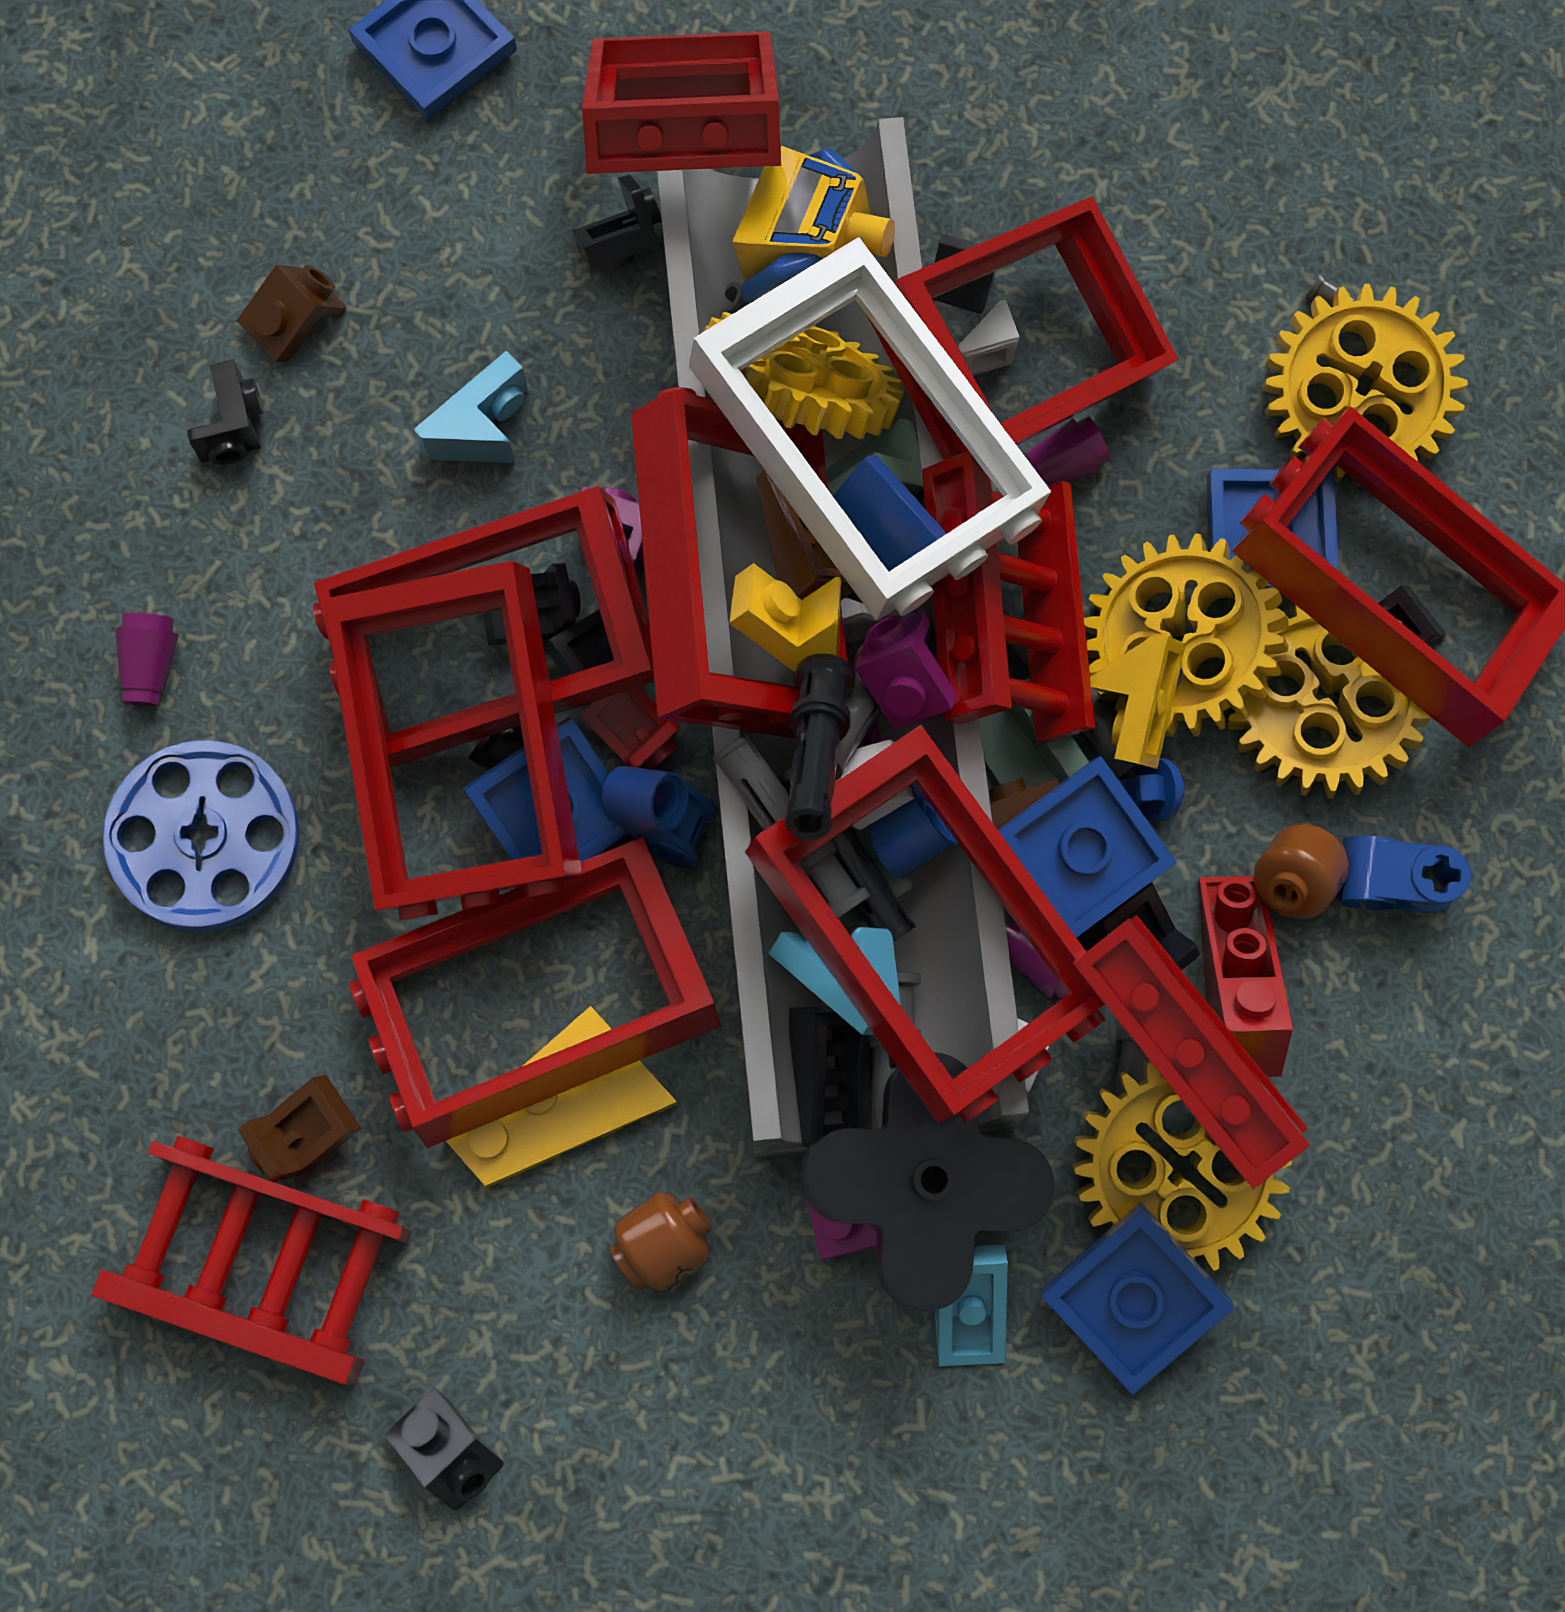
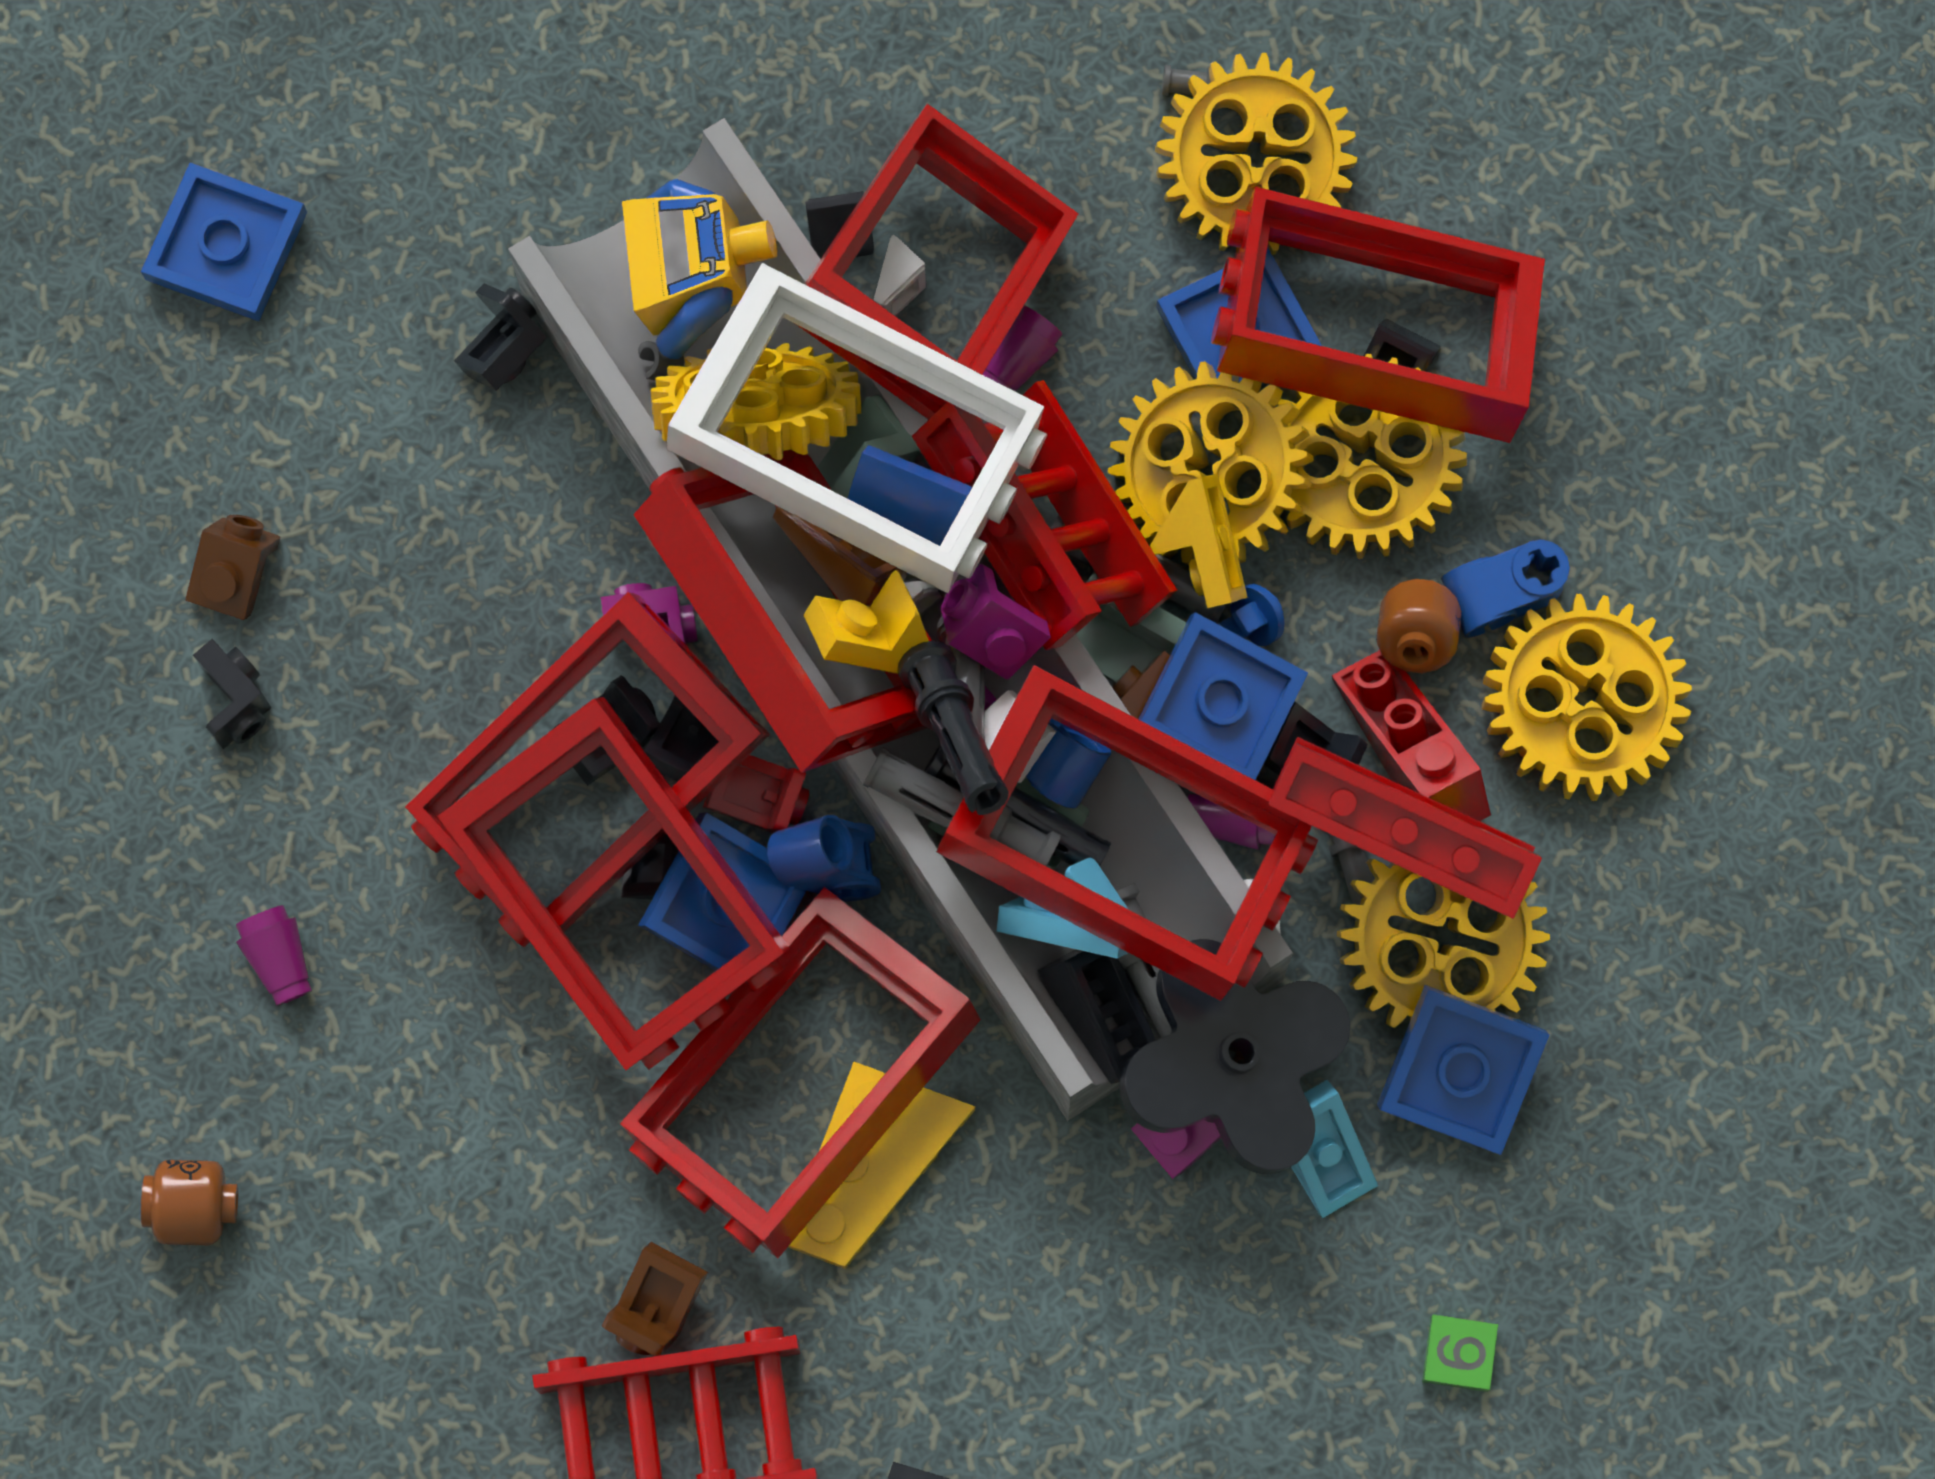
camera: 25 degrees left, 0 degrees up
(226, 854) = (401, 1118): wedge -> none
(464, 424) = (456, 594): medium azure slope -> none
(661, 1241) = (1027, 1233): dark orange head -> none
(681, 130) = (539, 238): red door -> none
(1001, 1560) = (1460, 1353): none -> bright green tile
(1477, 991) = (1623, 656): none -> yellow gear

